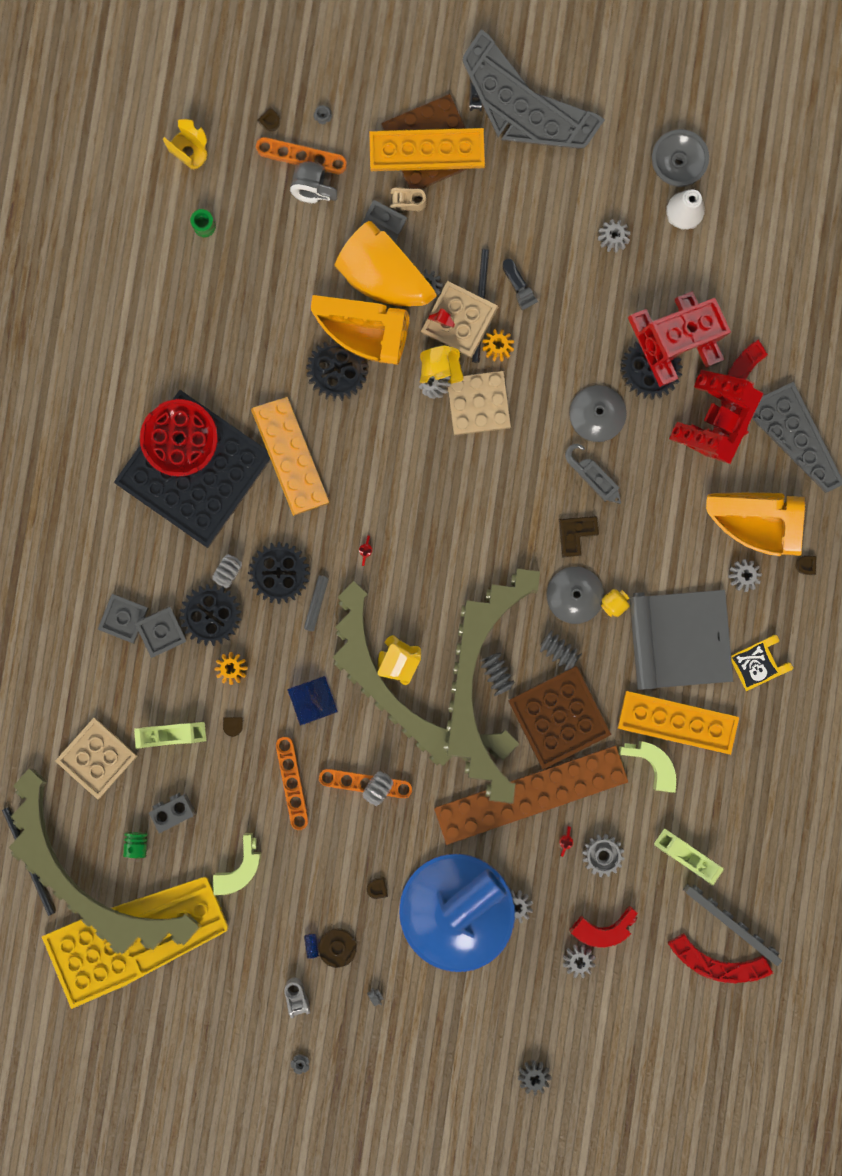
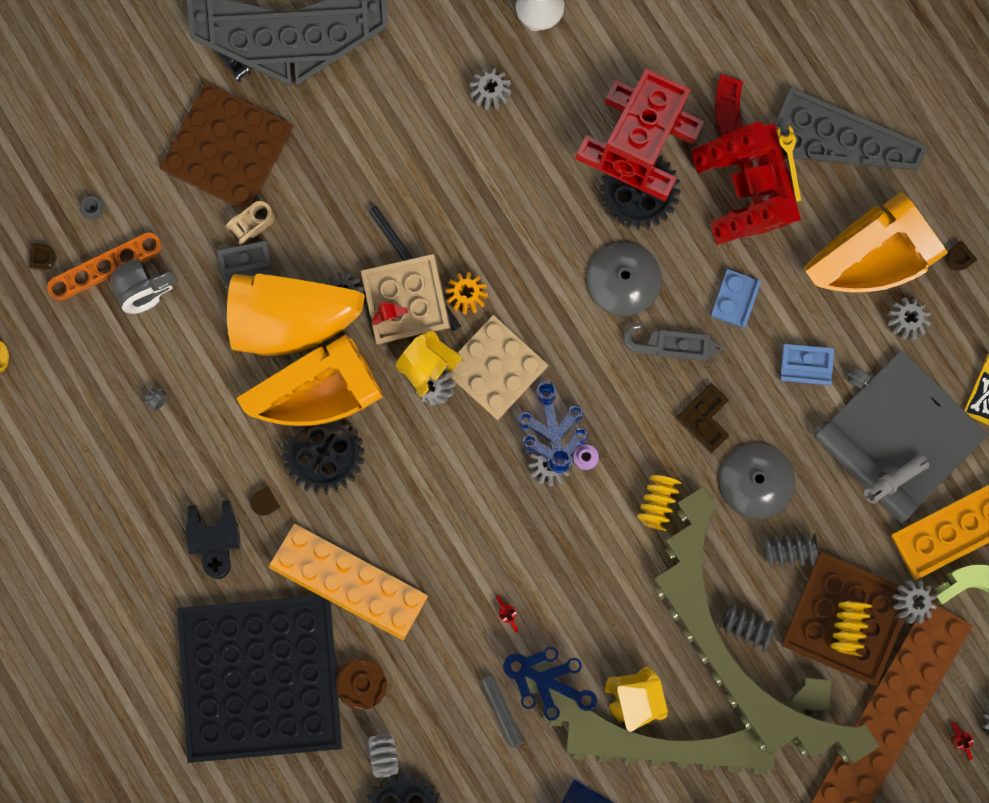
camera: 40 degrees left, 5 degrees down
(163, 426) = (193, 655): red brick -> none
(203, 223) = (60, 417): green piece -> none
(233, 369) = (213, 541): none -> black piece
(248, 520) = (361, 684): none -> reddish brown tile
(267, 258) = (155, 399): none -> dark grey plate
(279, 555) = (423, 694): black gear -> none
(280, 370) = (264, 502): none -> dark brown tile
(354, 606) = (544, 680): none -> clear blue plant
(427, 149) = (230, 156): light orange plate -> none
(462, 478) = (543, 471): none -> light grey gear
(480, 468) = (553, 432): none -> clear blue plant
(482, 502) = (582, 464): none -> lavender plate
(506, 558) = (658, 501): none -> yellow piece
(524, 295) = (452, 222): piece -> none
(555, 723) = (850, 627): none -> yellow piece
(610, 744) = (923, 601): none -> light grey gear
(615, 603) = (804, 454): yellow head -> none
(649, 660) = (889, 483): none -> light grey pin
(653, 479) = (735, 298): none -> medium blue plate
(662, 552) = (807, 364): none -> medium blue plate
(685, 585) = (858, 378): none -> dark grey plate
(760, 411) = (788, 143): none -> yellow flag

